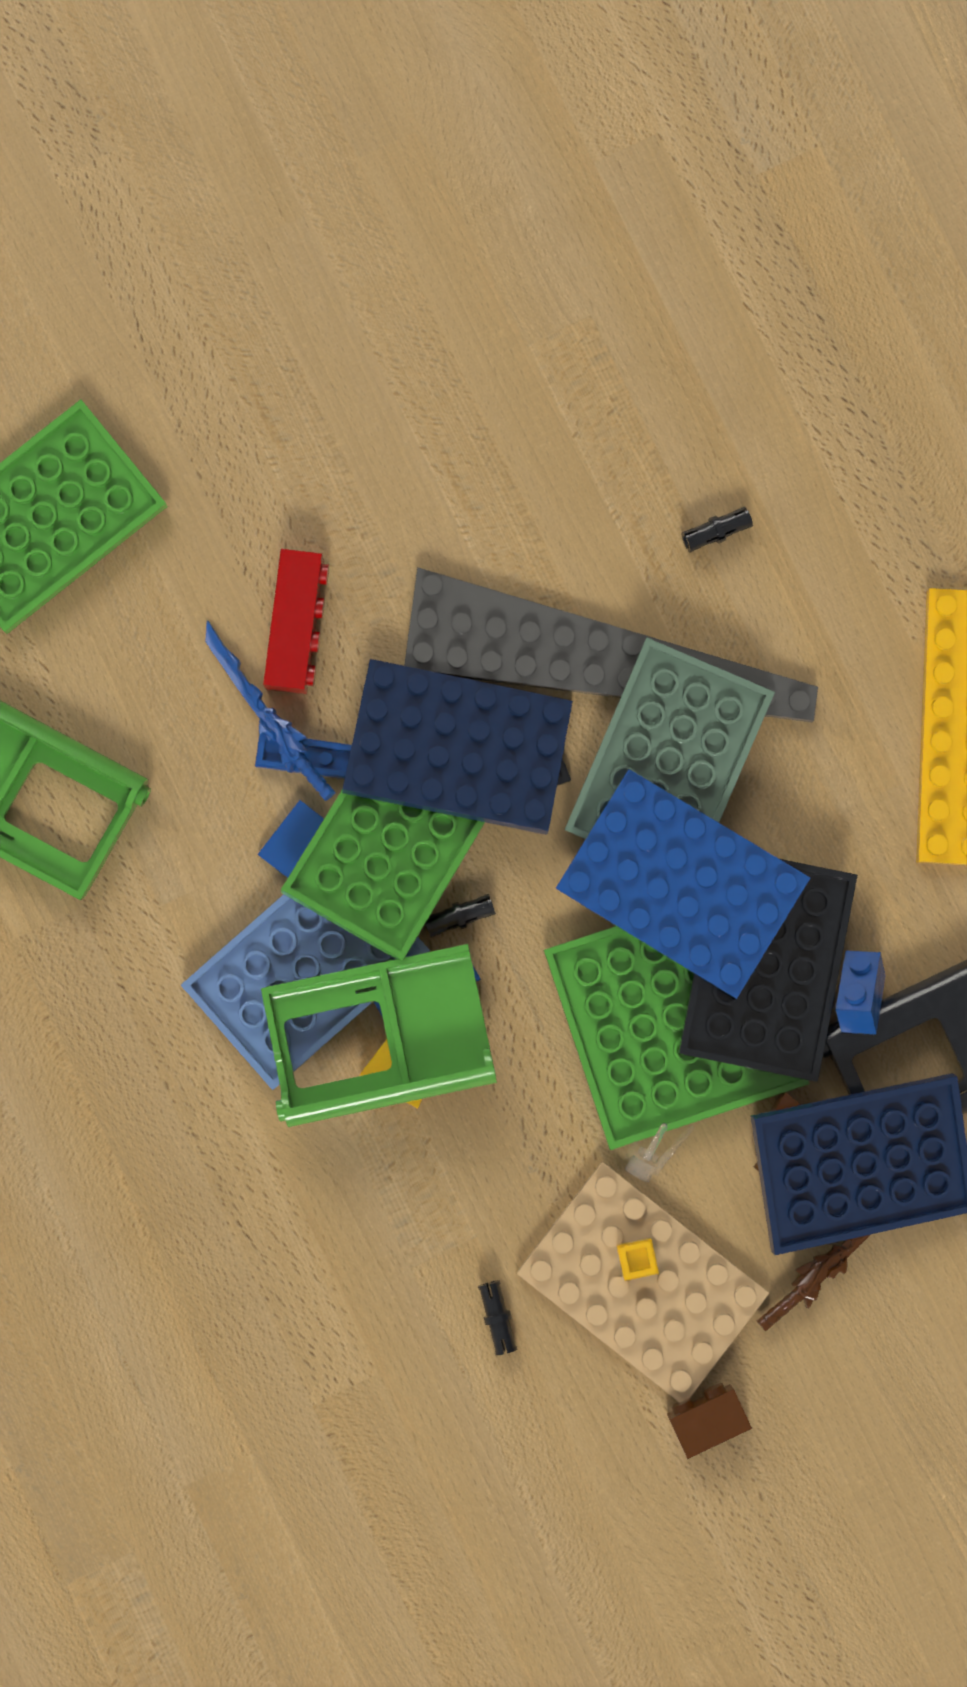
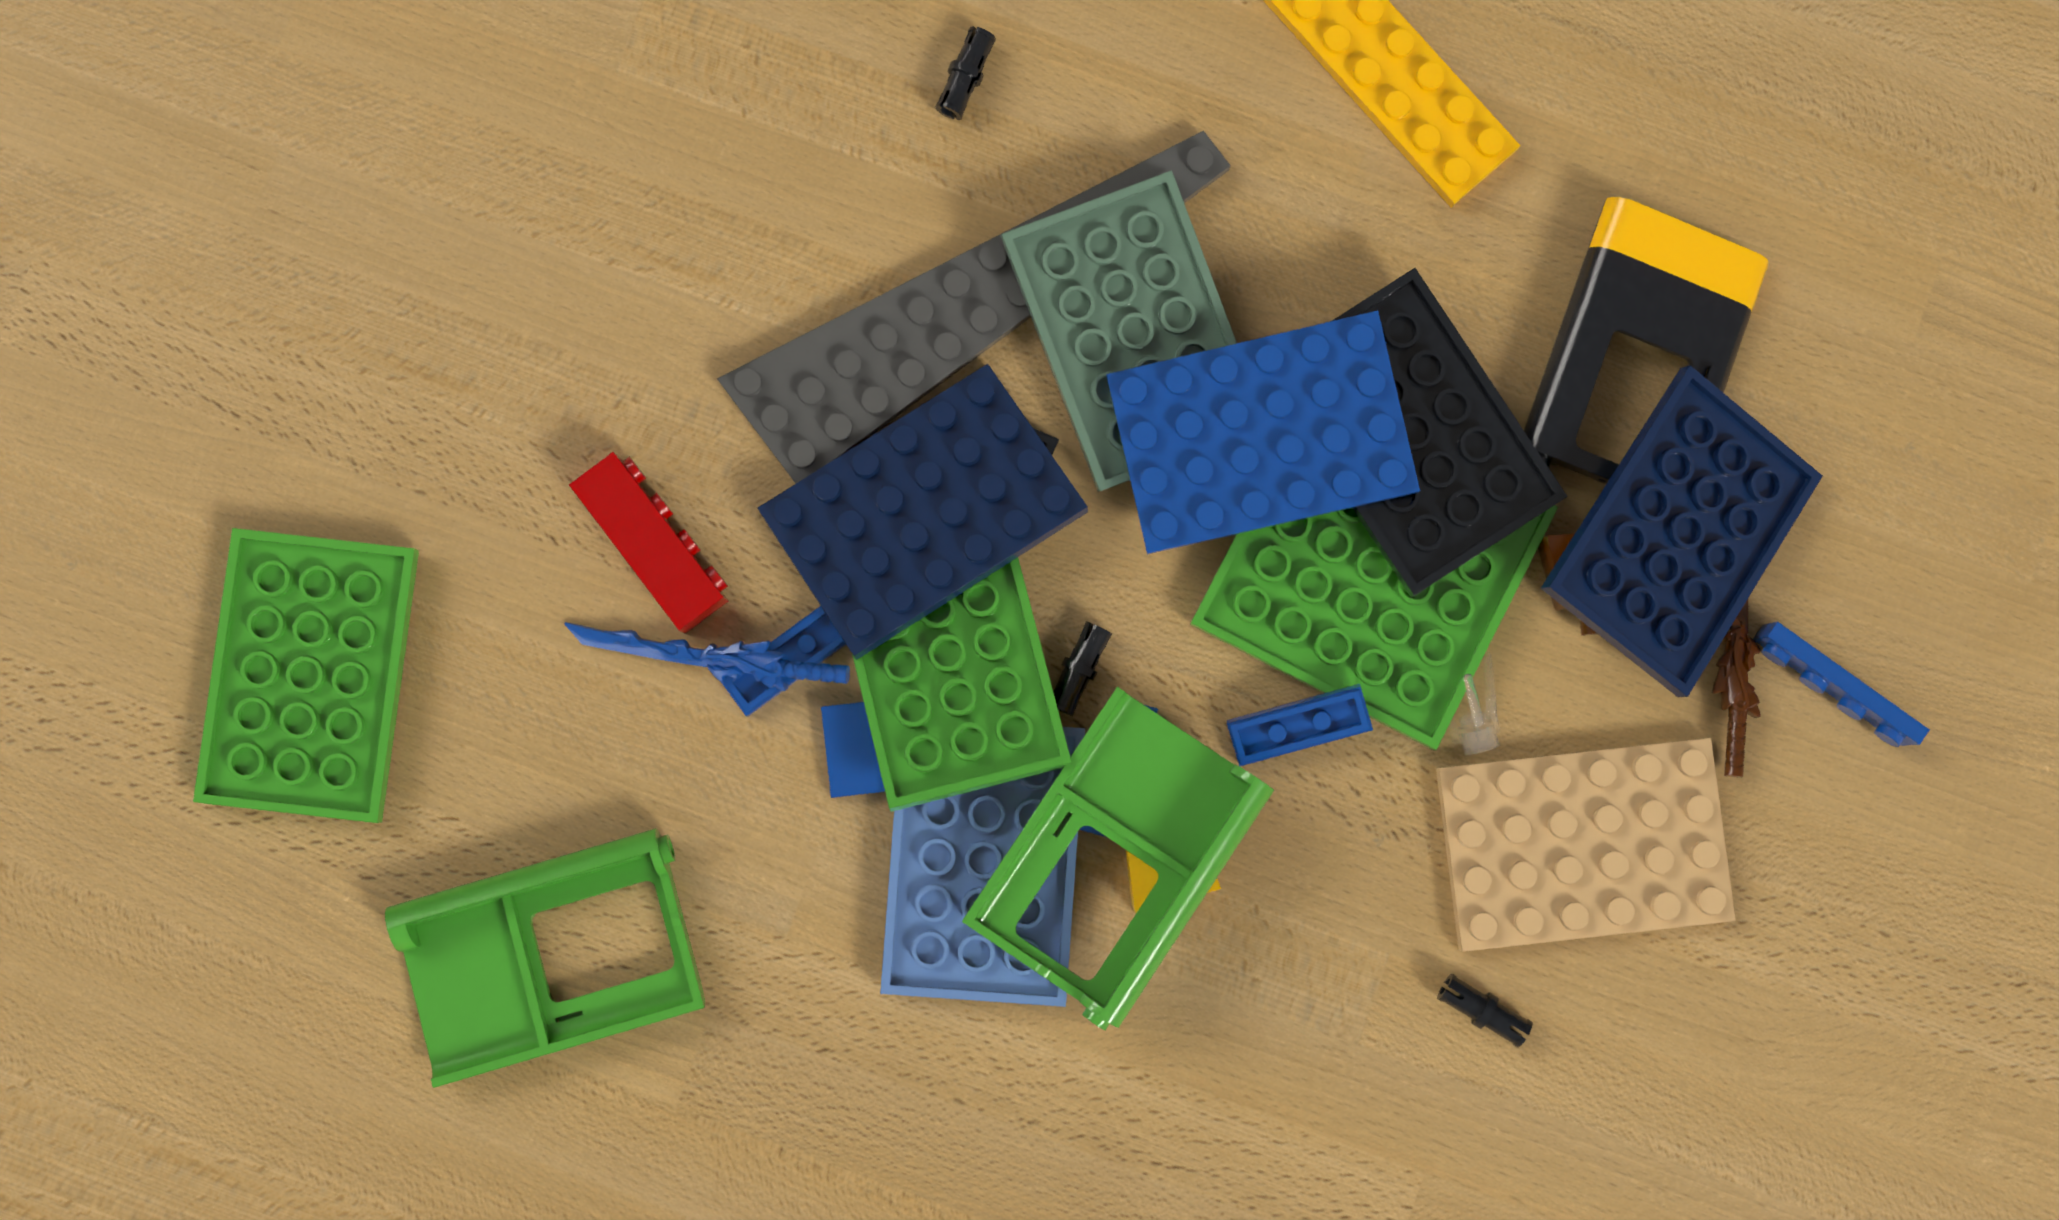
camera: 50 degrees left, 0 degrees up
(549, 1063) = (1299, 725): none -> blue tile
(637, 1259) = (1562, 826): yellow tile -> none
(708, 1419) = (1772, 911): reddish brown brick -> none
(860, 992) = (1524, 374): blue brick -> none
(871, 1350) = (1825, 675): none -> blue plate

